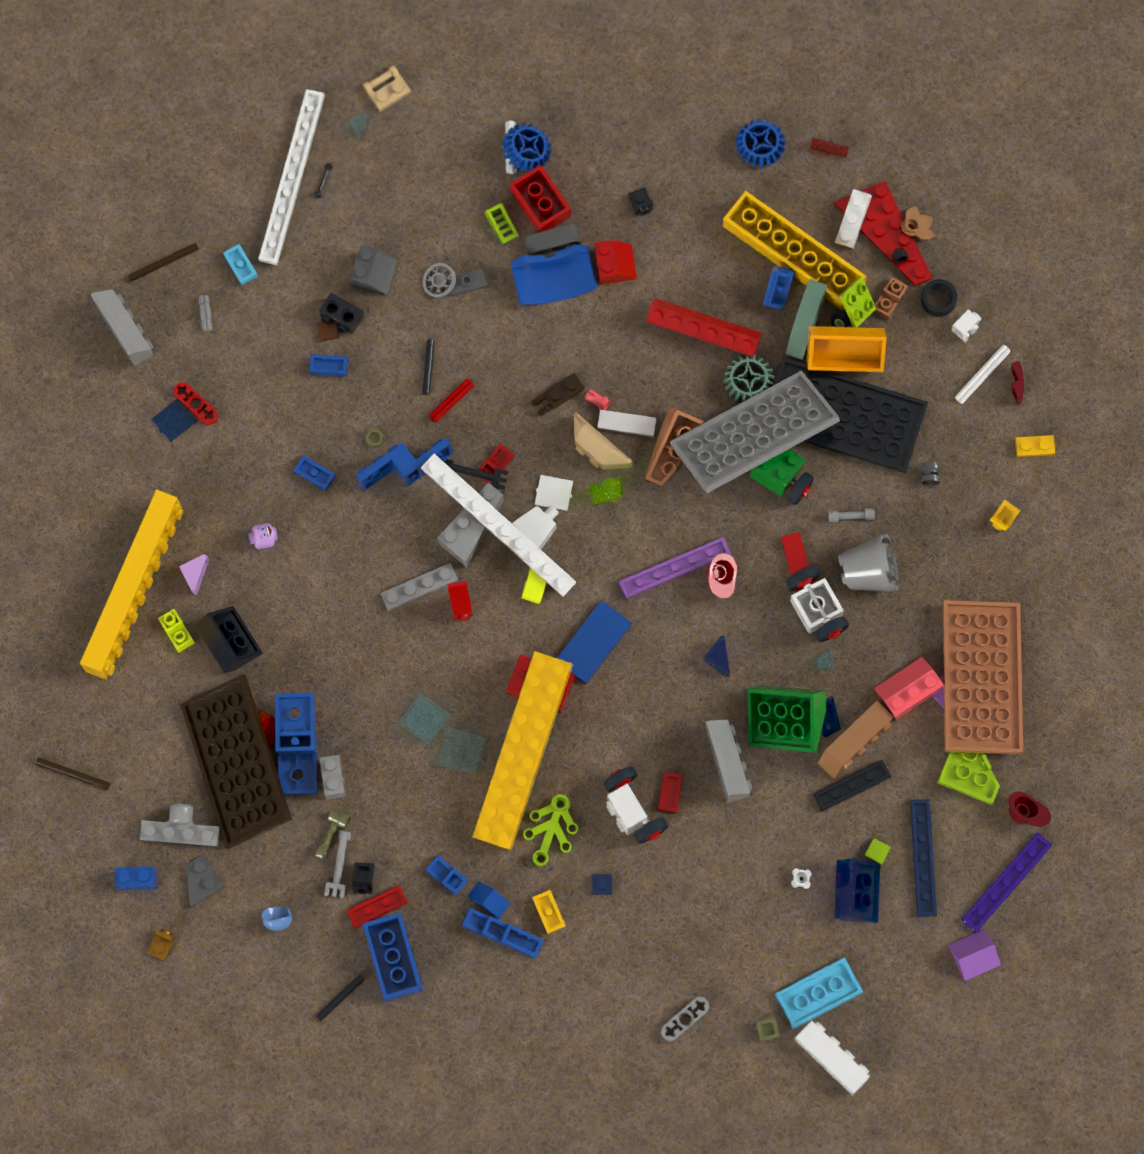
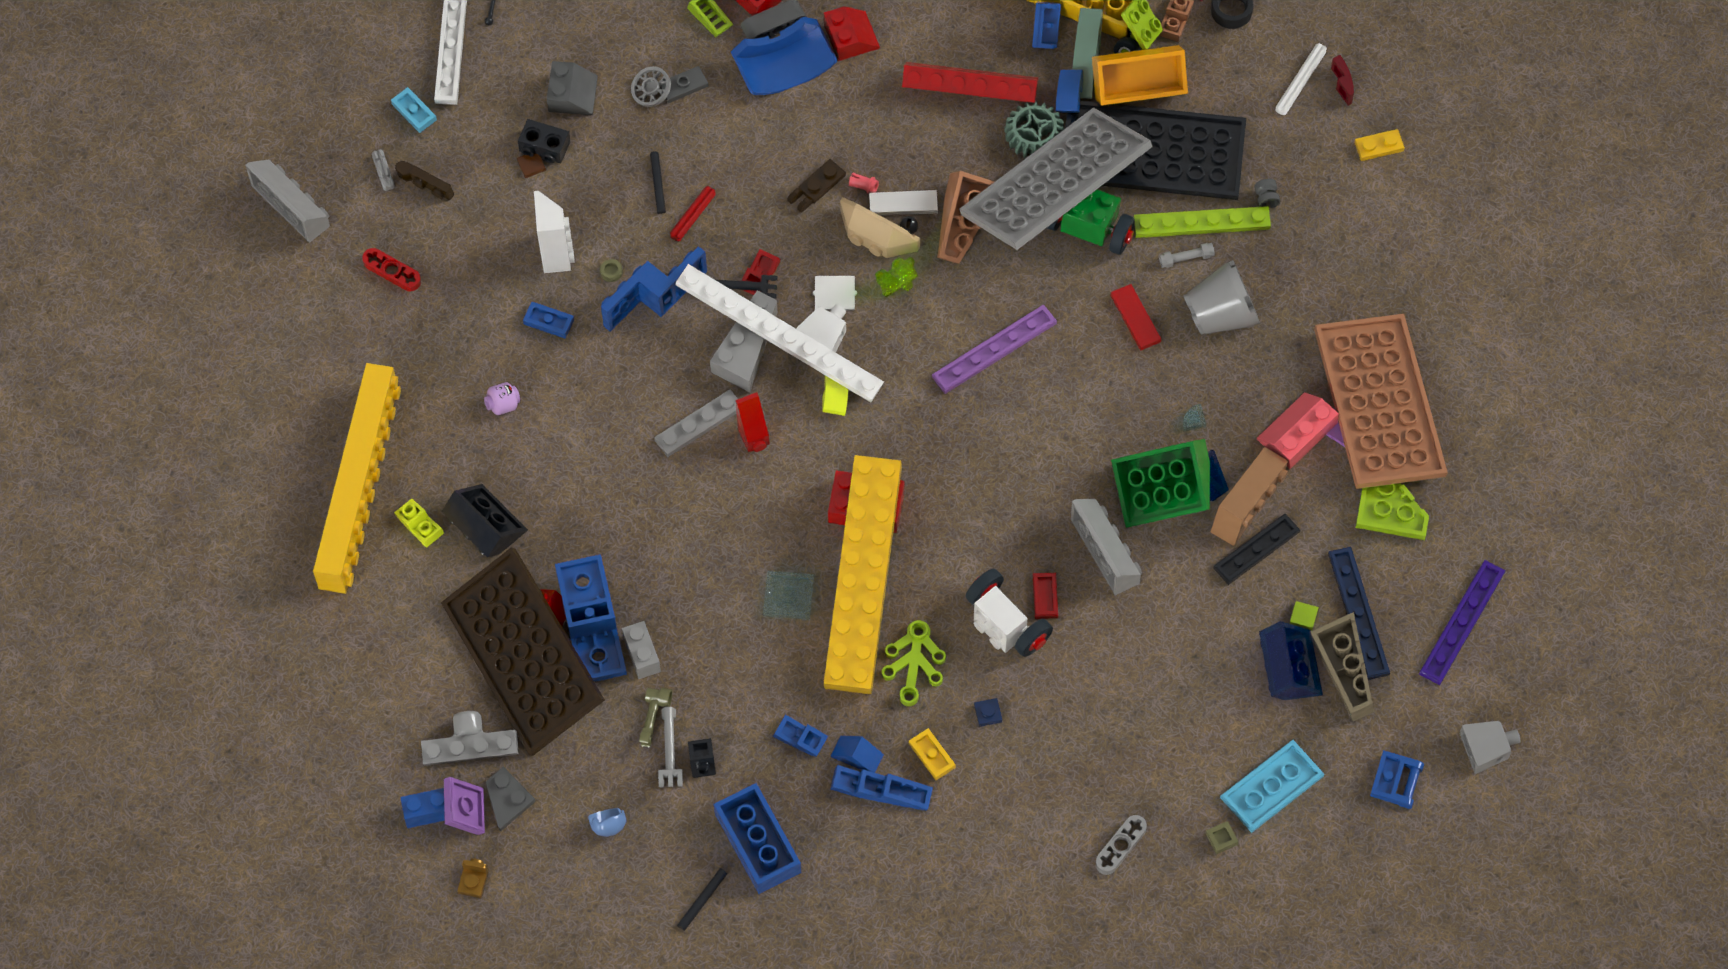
camera: 15 degrees left, 10 degrees down
(72, 773) = (326, 705): dark brown bar -> none
(163, 262) = (304, 135): dark brown bar -> none
(164, 883) = (464, 806): none -> medium lavender tile
(174, 420) = (369, 293): clear blue piece -> none
(194, 572) = (427, 453): lavender slope -> none
(235, 329) = (424, 179): none -> dark brown hinge
(328, 365) = (527, 203): blue plate -> none
(328, 405) = (553, 235): none -> white slope
(377, 906) = (727, 784): red tile -> none
(424, 719) = (737, 567): clear light blue tile -> none
(594, 641) = (921, 443): blue tile -> none
(630, 447) = (913, 225): none -> black hinge
(718, 658) = (1068, 436): clear blue slope -> none
(722, 575) = (1052, 343): piece -> none
(784, 350) = (1068, 91): none -> blue slope
(806, 874) = (1225, 656): white plate -> none
(816, 604) = (1169, 354): brick -> none
(832, 1057) = (1305, 853): white brick -> none
(871, 487) = (1202, 222): none -> lime plate
(900, 898) = (1343, 658): none -> dark tan wedge
(915, 1005) = (1389, 775): none -> blue plate
(966, 325) = (1270, 30): white brick -> none
(975, 954) = (1445, 708): medium lavender slope -> none
(1002, 993) = (1487, 744): none -> light grey torso
(1004, 516) = (1363, 223): yellow bracket -> none
(1025, 810) = (1466, 536): dark red piece -> none

